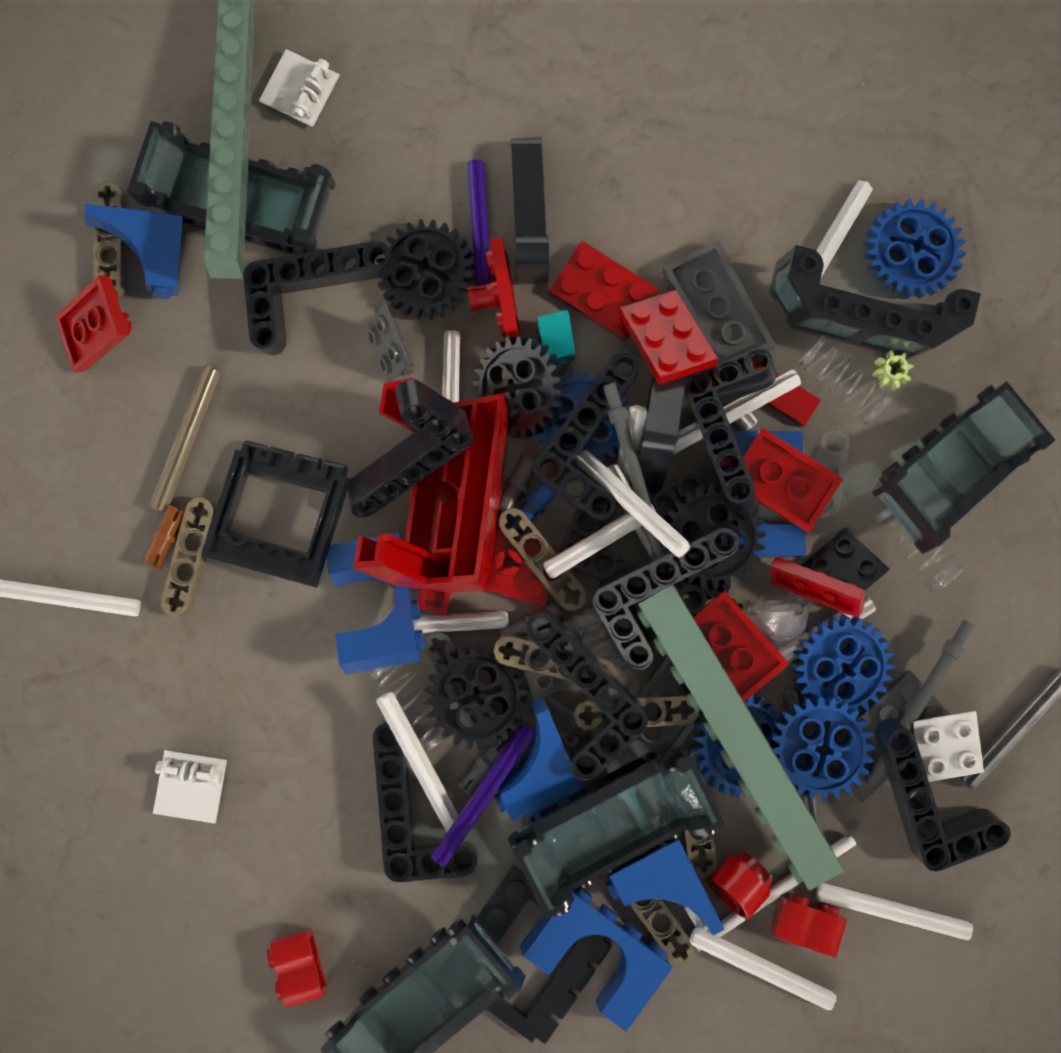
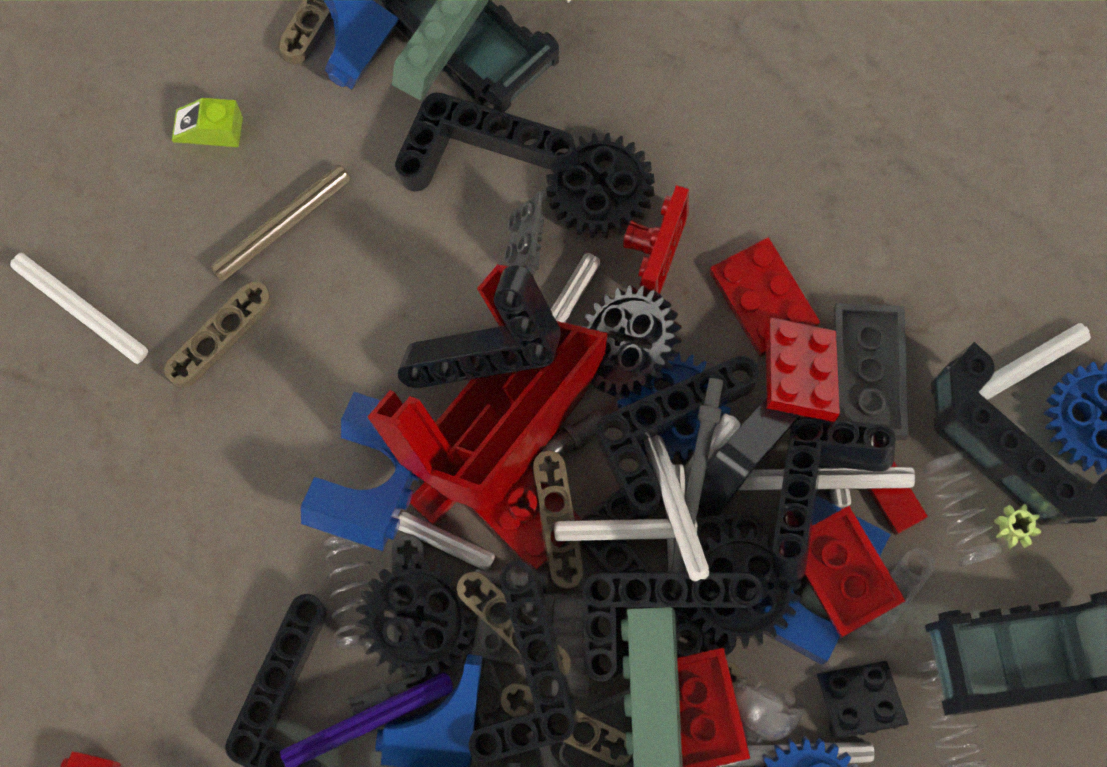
camera: 30 degrees right, 10 degrees down
(76, 388) = (208, 123): none -> lime slope
(92, 324) = (260, 70): red plate -> none
(163, 537) = (206, 302): dark orange pin -> none
(189, 786) = (87, 554): white hinge -> none
(266, 556) = (296, 376): black hinge -> none
(417, 759) = (323, 647): white axle -> none
(479, 221) = (678, 165): dark purple axle -> none
(529, 211) = (717, 210): black beam -> none
(533, 505) = (579, 464): blue pin -> none
(556, 332) = (693, 307): teal slope -> none
(817, 586) = (822, 699): red plate -> none

